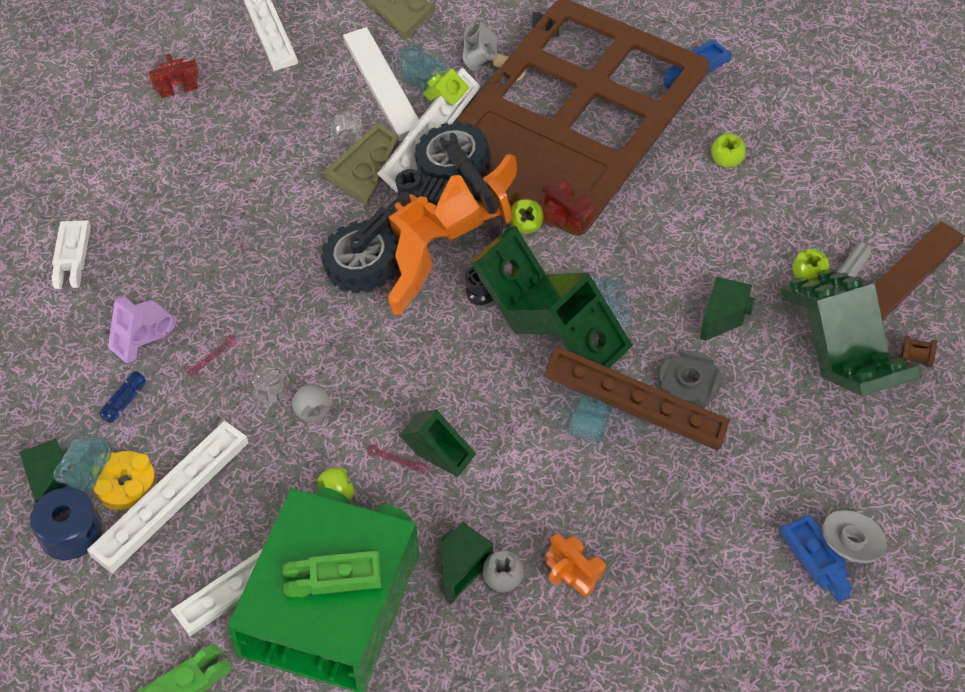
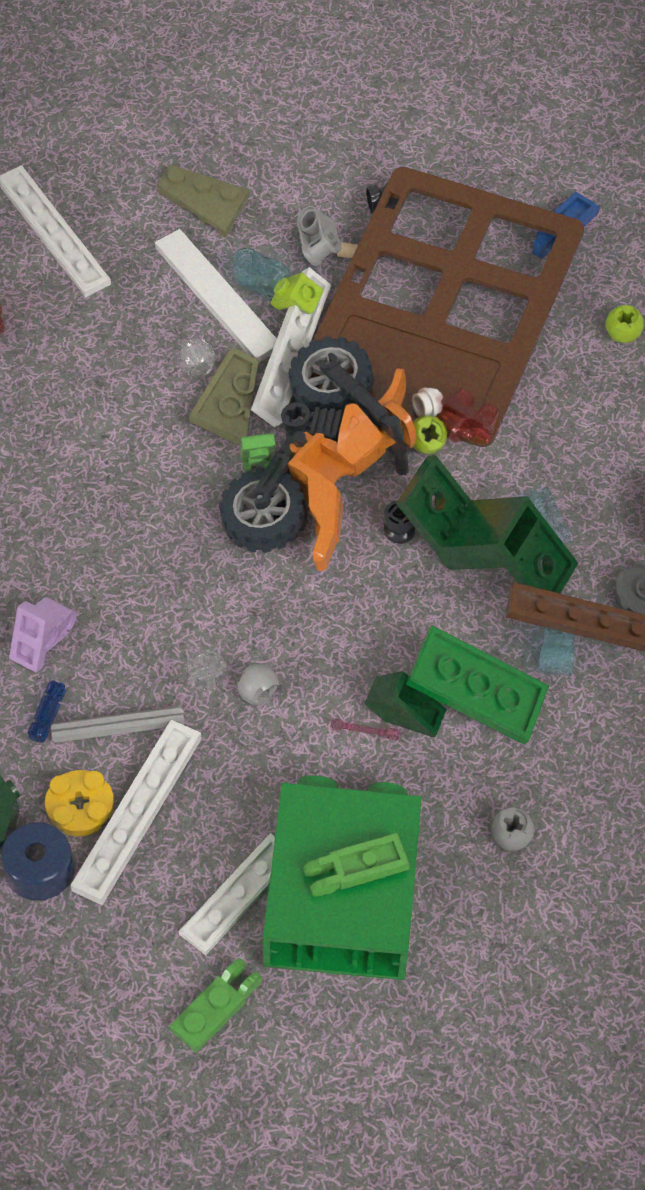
camera: 15 degrees left, 5 degrees up
(83, 463) = (36, 791): clear light blue piece -> none
(178, 417) = (116, 724): none -> light grey axle
(230, 341) = (142, 629): clear pink hinge -> none
(336, 479) = (312, 763): lime piece -> none
(365, 201) = (257, 450): none -> bright green hinge
(462, 559) = (467, 823): dark green slope -> none
(506, 435) = (477, 685): none -> green tile
(532, 188) = (427, 402): none -> white plate
(571, 566) = (580, 810): orange hips -> none

